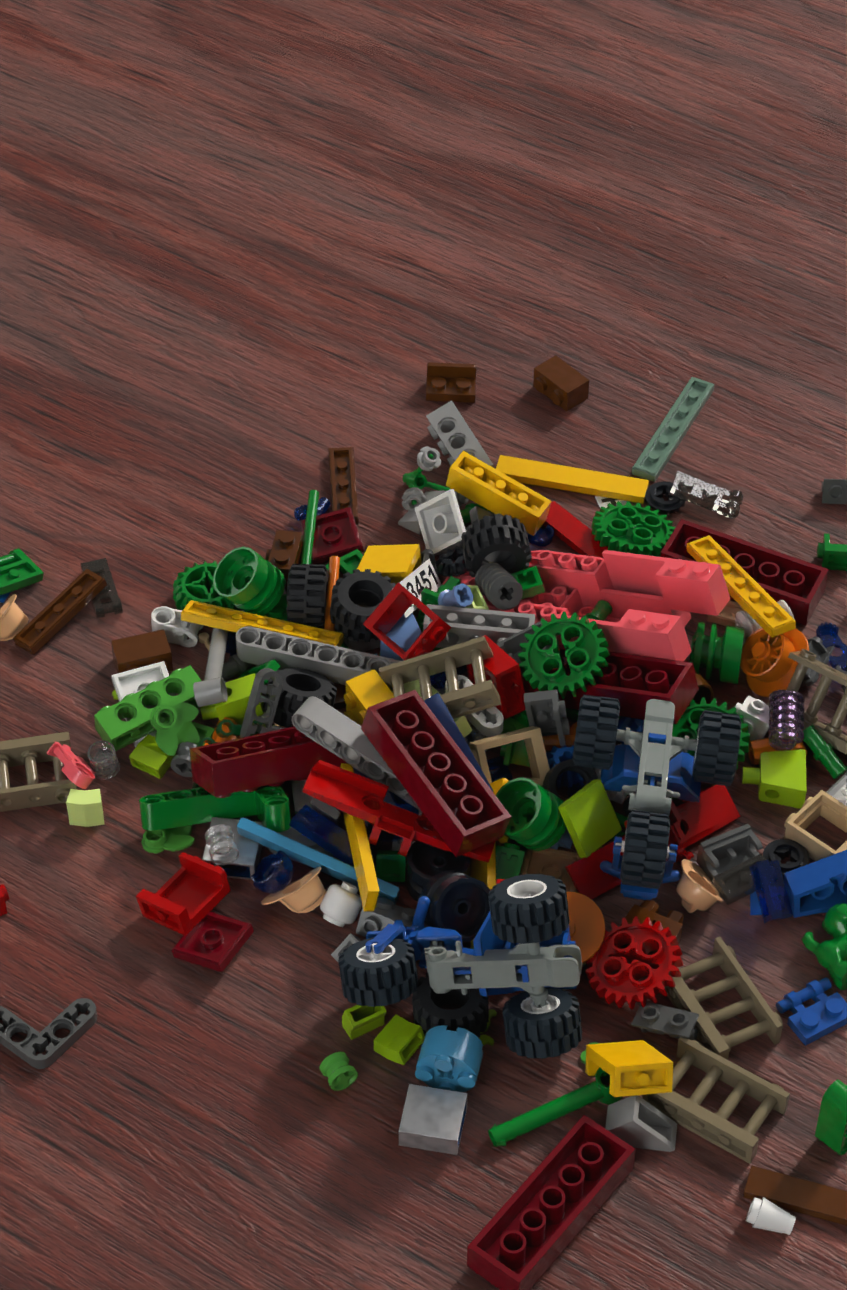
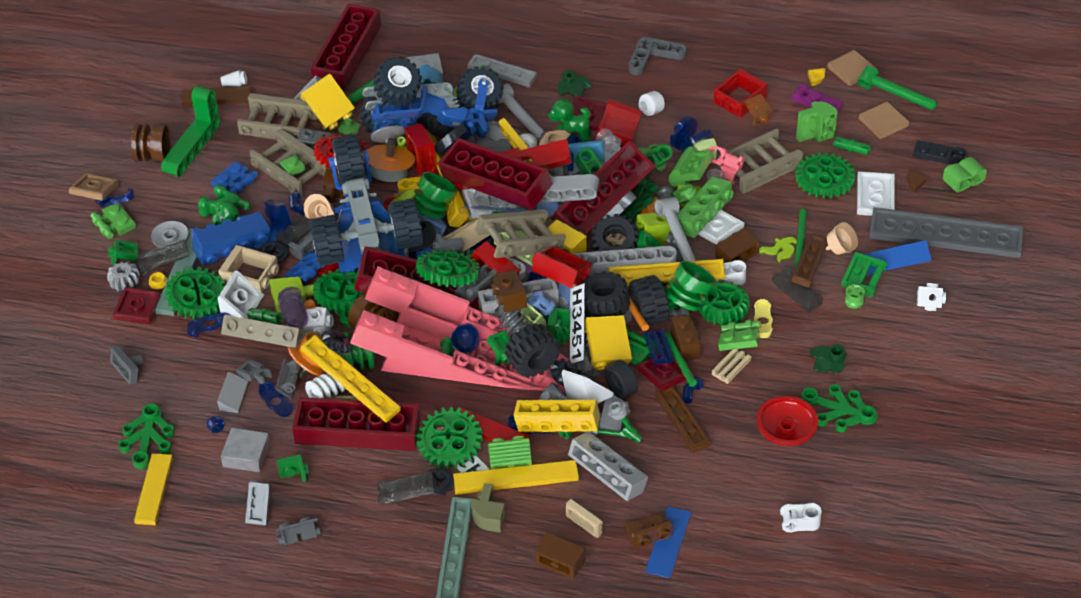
camera: 160 degrees right, 0 degrees up
(40, 552) = (854, 296): none -> bright green wheel
(44, 656) = (800, 235): none -> green bar
(71, 651) = (785, 244): none -> lime piece
(90, 818) = (704, 135): none -> clear blue tile
(99, 836) = (683, 130): none -> clear blue tile
(107, 922) = (651, 103): none -> white head
(126, 497) = (829, 358): none -> dark green plate
(128, 776) = (690, 167): none -> bright green brick
(134, 426) = (841, 408): none -> green plant
(178, 555) = (762, 309): none -> light yellow piece
(203, 1012) = (573, 85): none -> dark green plate
(215, 536) = (737, 339): none -> bright green plate
(231, 428) = (787, 420): none -> red dish
(244, 523) = (724, 366): none -> tan tile
(260, 905) = (563, 113): none -> green animal
(279, 347) = (802, 516): none -> white piece
(302, 1086) = (505, 71): none -> light grey tile
(325, 1020) = (508, 99): none -> light grey piece
(328, 538) = (653, 335): none -> clear blue tile
(396, 523) = (621, 379): none -> black tyre
(415, 391) = (666, 551): none -> blue sticker
(496, 596) = (509, 291): none -> reddish brown brick
(517, 409) = (584, 518): none -> tan tile
(564, 598) = (465, 338): none -> clear blue hair
(570, 488) = (509, 453): none -> bright green brick
(621, 445) = (485, 513): none -> olive brick
(720, 976) = (292, 165): none -> bright green plate
(730, 928) = (294, 203): none -> clear blue arm
(753, 811) = (305, 268): none -> blue plate
(755, 618) = (337, 341): none -> black gear

